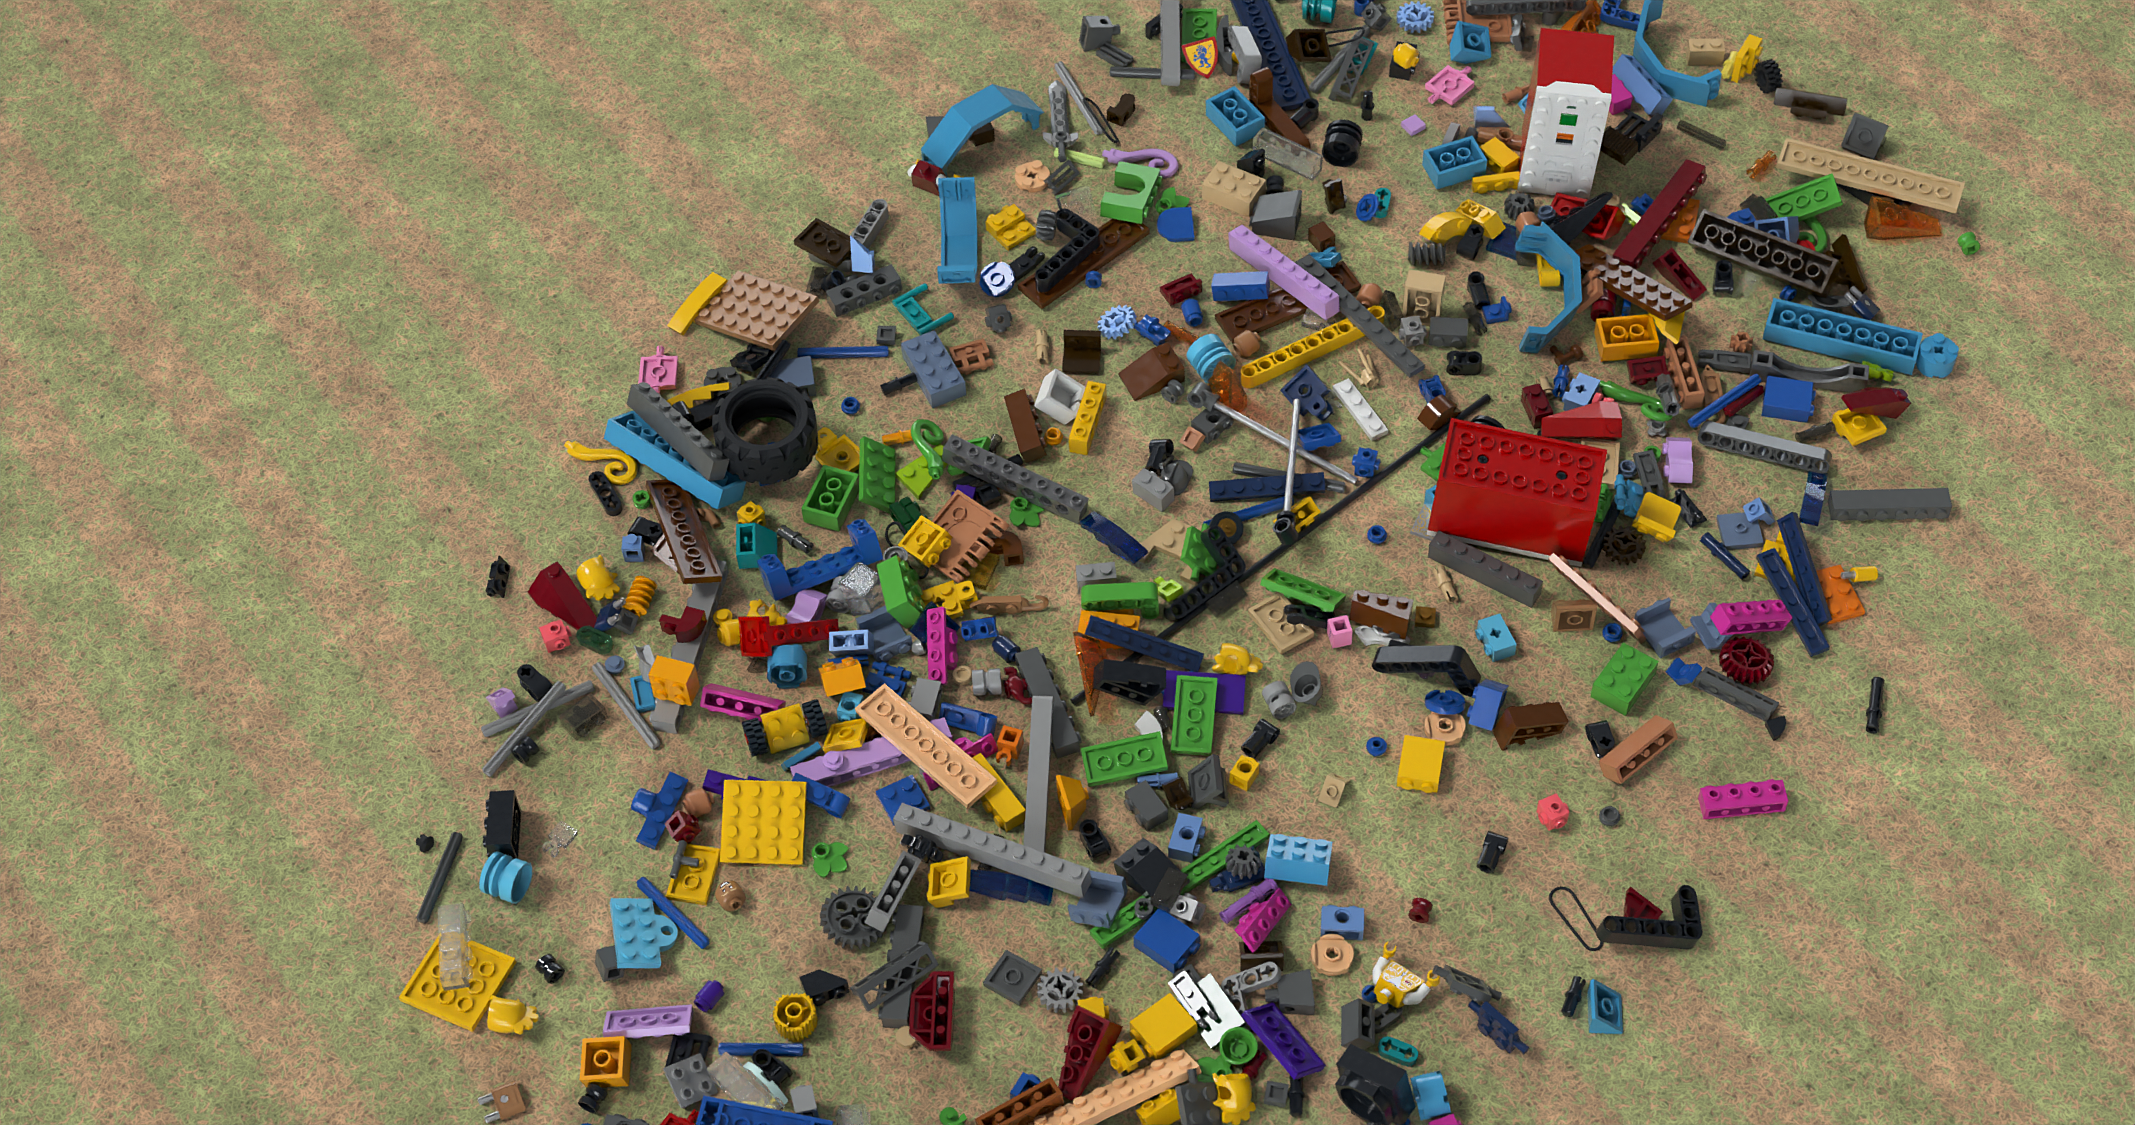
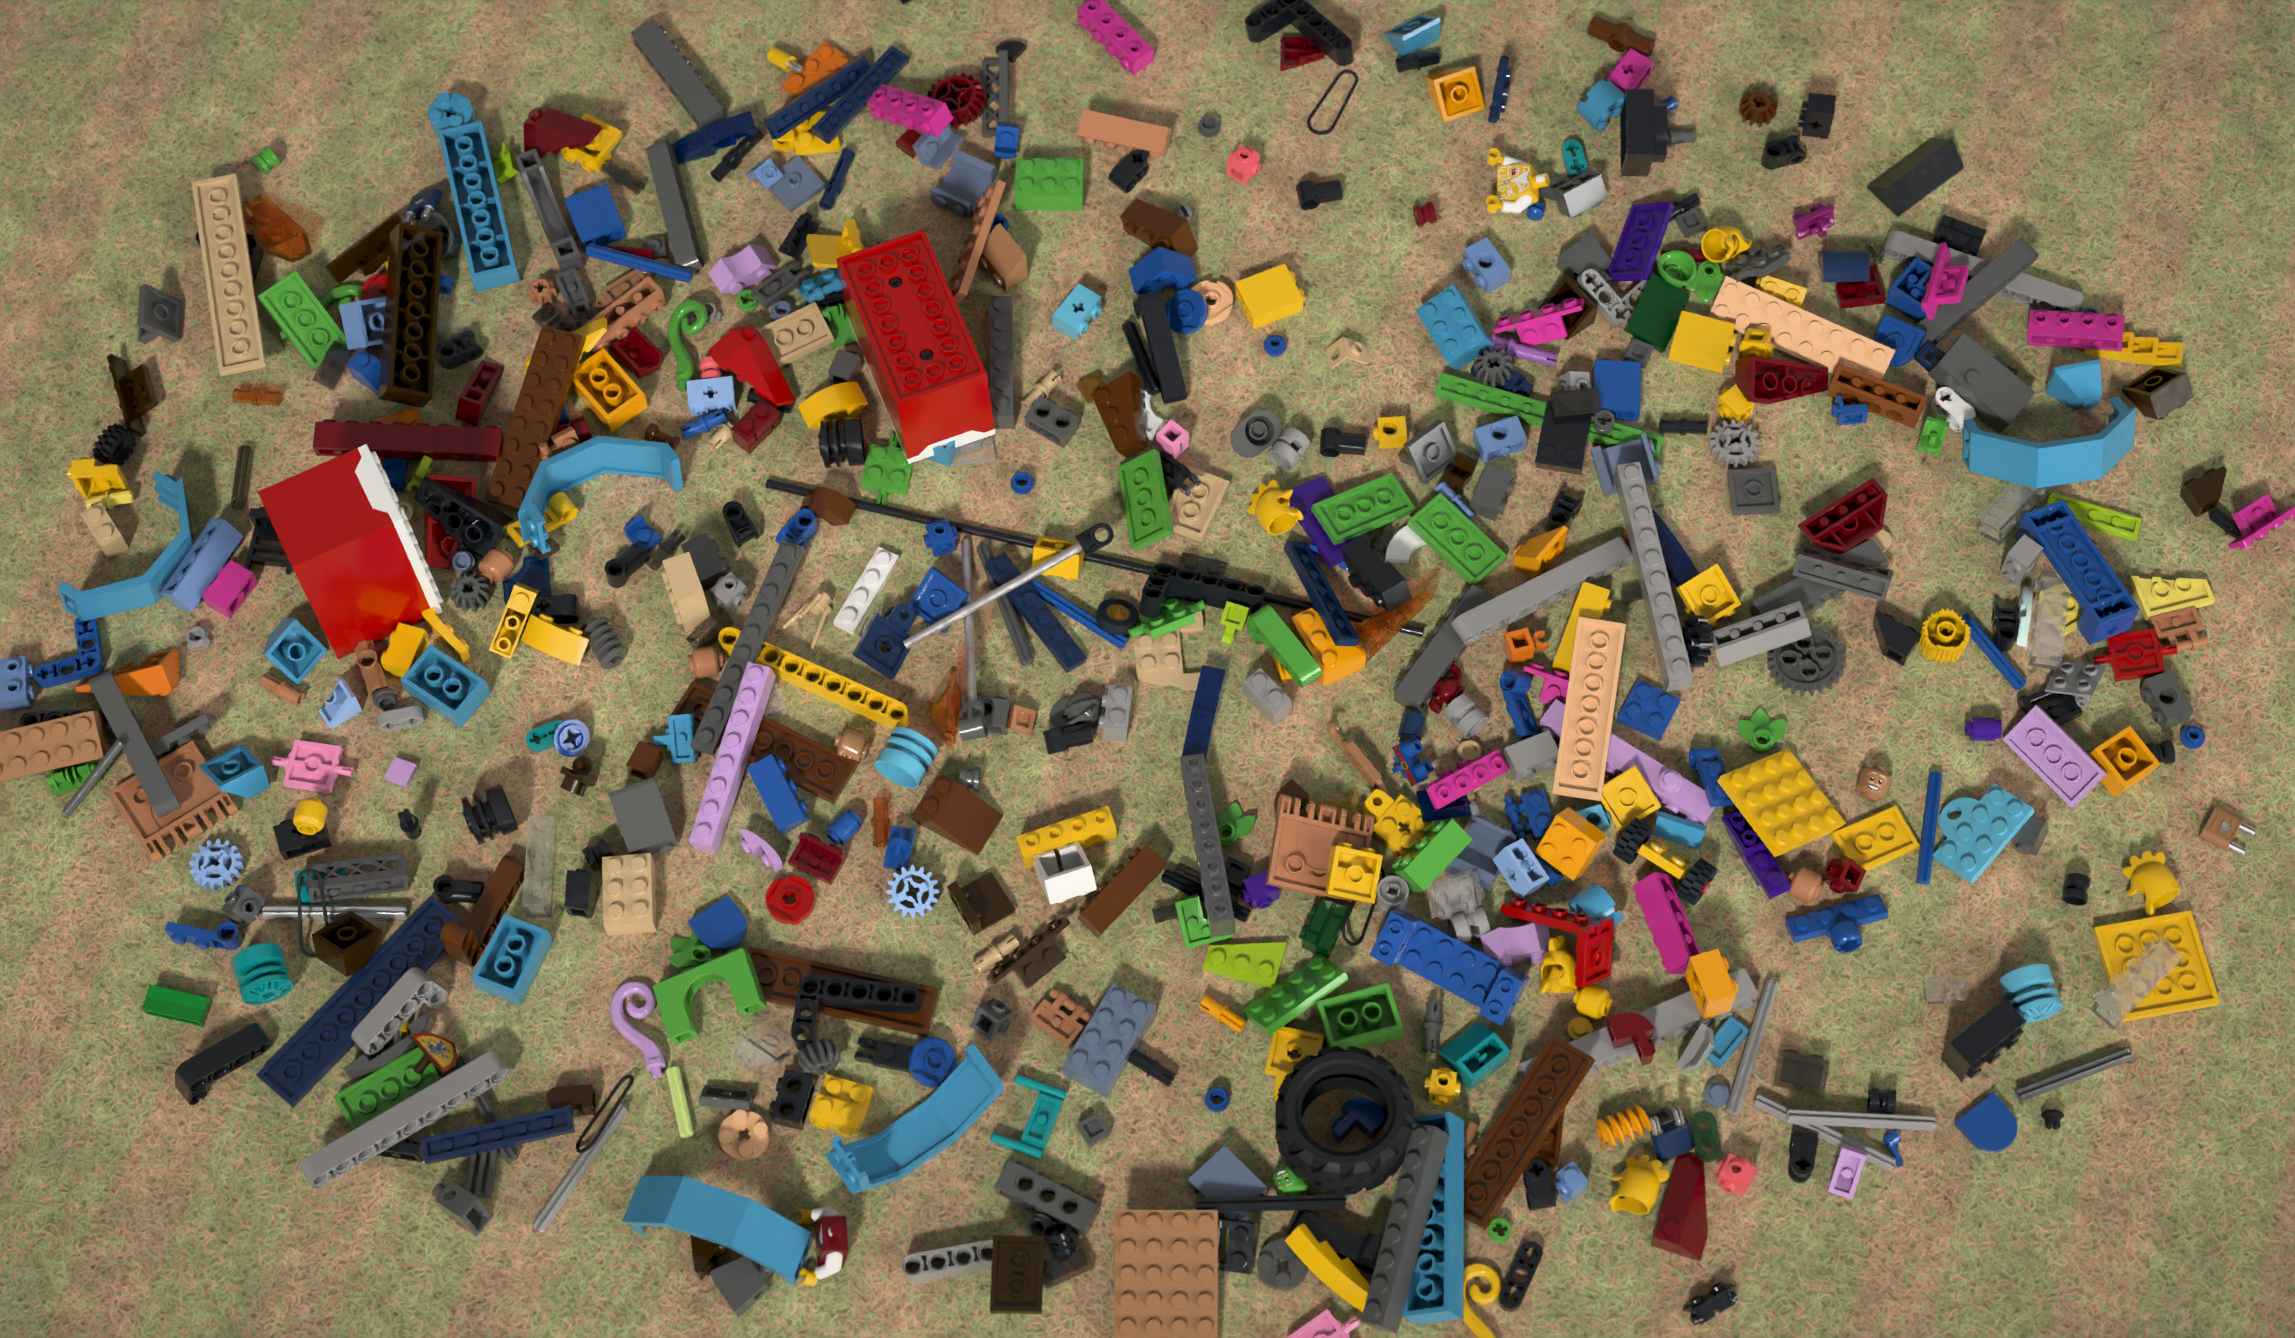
camera: 125 degrees left, 10 degrees up
(455, 804) = (1989, 1125): none -> blue tile
(497, 740) = (1890, 1141): none -> blue hand
(679, 859) = (1877, 855): dark grey piece -> none
(844, 352) = (1147, 1161): blue axle -> none
(861, 257) = (1012, 1219): light blue slope -> none
(935, 463) = (1212, 988): bright green plant -> none
(1021, 362) = (1035, 959): none -> dark brown bracket
(1031, 202) = (798, 1100): none -> black brick
(1053, 432) = (1111, 854): light orange plate -> none
(1059, 122) = (665, 1136): sword -> none
(1093, 279) = (862, 960): blue bush -> none
(1125, 63) = (498, 1135): none -> dark blue plate
(1168, 273) = (786, 887): none -> red plate
(1191, 997) = (1661, 328): hinge -> none
(1217, 264) = (759, 847): none -> lavender slope
(1332, 966) = (1524, 269): light nougat plate -> none
(1409, 576) = (1049, 425): none -> dark grey brick
(1464, 983) = (1478, 130): dark grey plate -> none
(1523, 997) = (1455, 92): none -> light orange slope
(1539, 755) = (1178, 211): none -> light grey hinge
(1668, 394) = (658, 319): dark grey piece -> none
(1713, 340) = (552, 317): none -> clear smoke slope
(1781, 490) = (720, 171): none -> black pin

